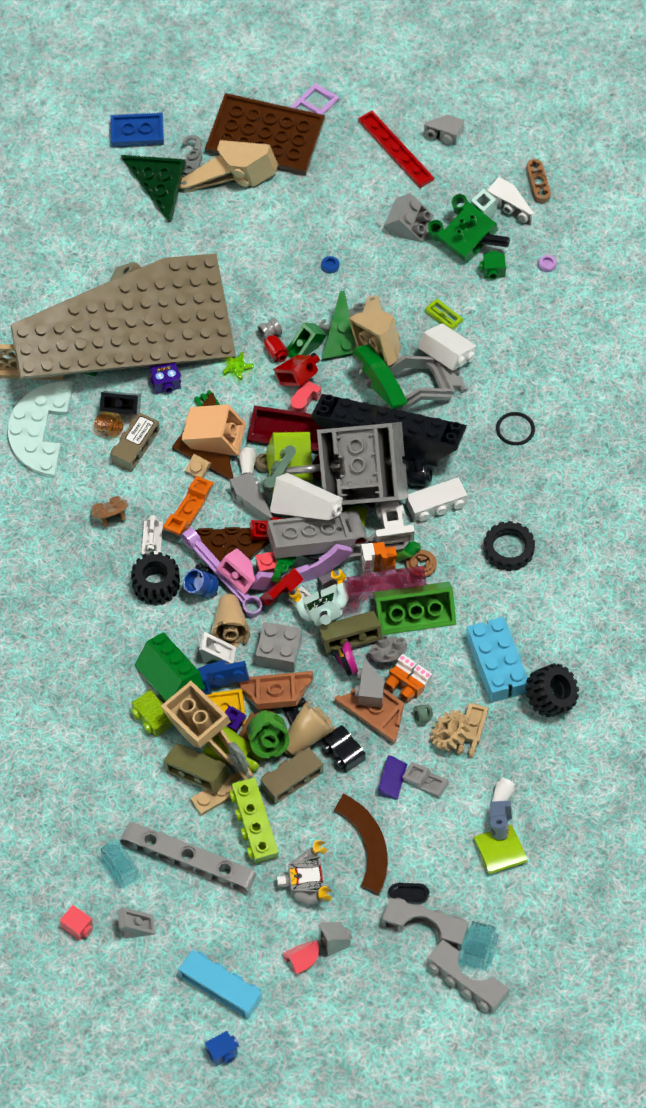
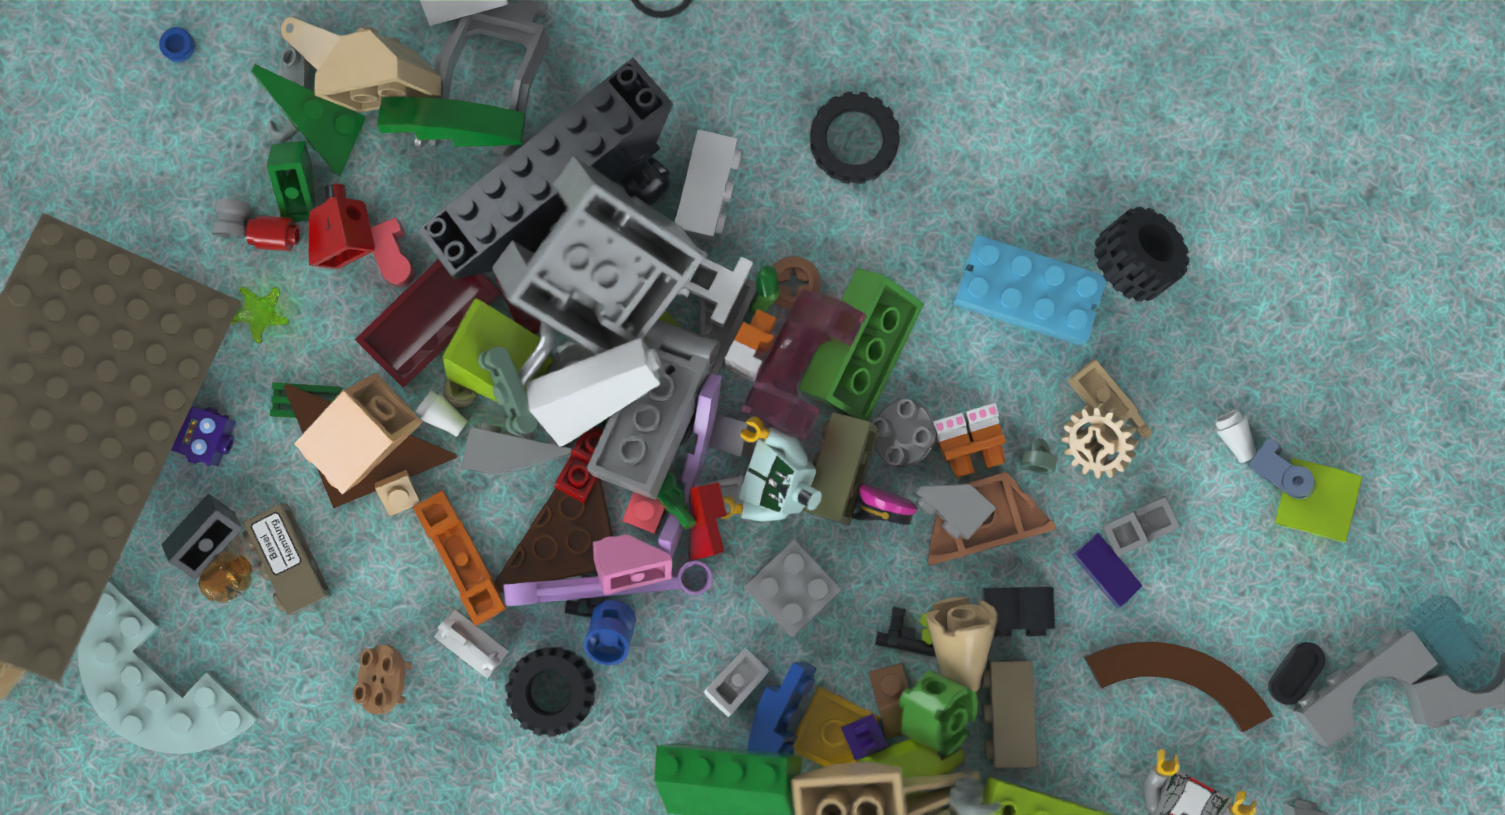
camera: 55 degrees left, 25 degrees up
(230, 621) = (699, 630): tan cone -> none
(276, 689) = (860, 639): nougat wing -> none

